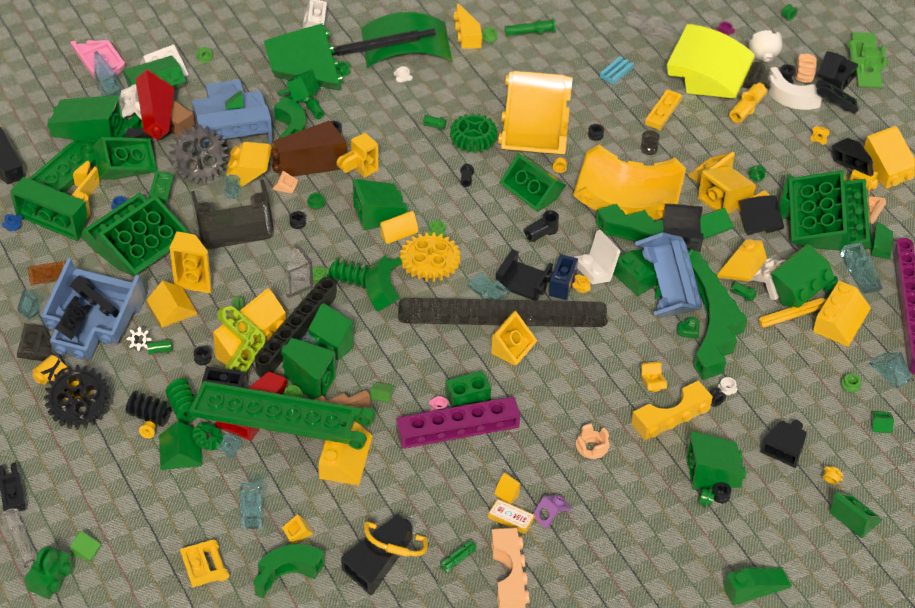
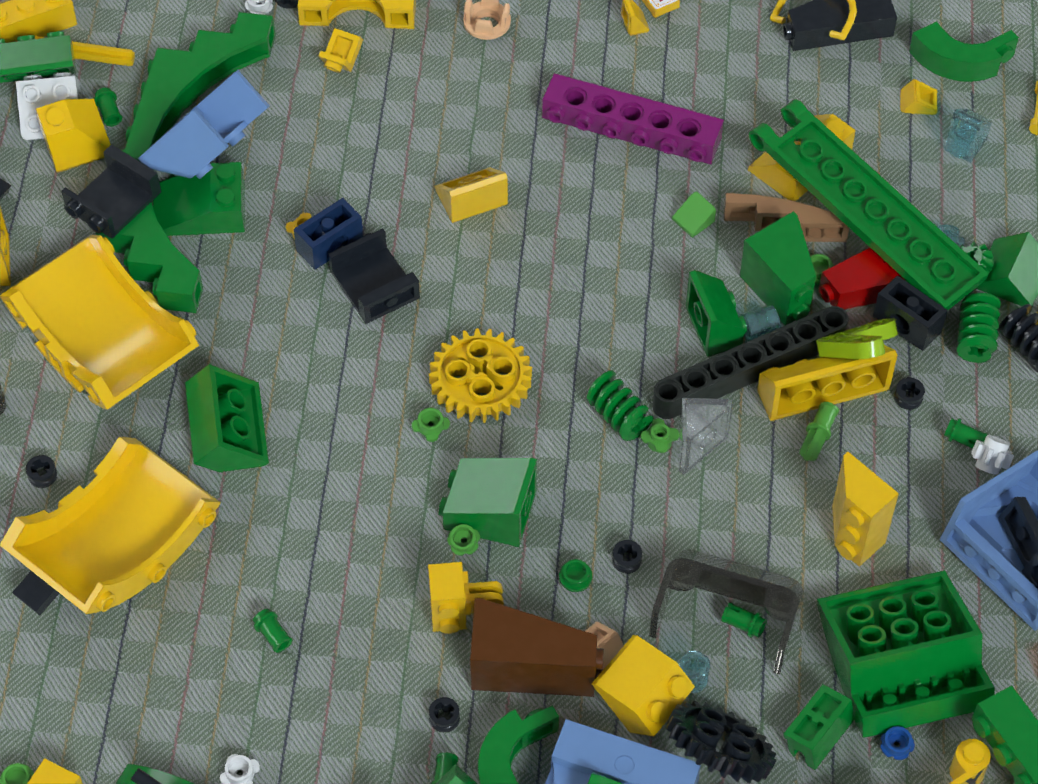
camera: 145 degrees left, 10 degrees up
(170, 304) = (919, 499): yellow slope -> none
(379, 284) = (586, 360): green arch -> none
(398, 227) = (471, 451): yellow slope -> none
(438, 403) = (633, 152): bright pink plate -> none
(466, 175) = (302, 502): black pin -> none
(468, 389) = (586, 152): green brick -> none
(473, 133) = (215, 558): green gear -> none
(487, 289) = (436, 289): clear light blue slope -> none
(497, 311) = (454, 239): clear smoke beam -> none
(546, 225) = (278, 338): black piece -> none
(559, 165) = (153, 436): yellow hinge -> none
(601, 261) = (261, 234): white bracket -> none
(715, 223) = (47, 226): green slope -> none

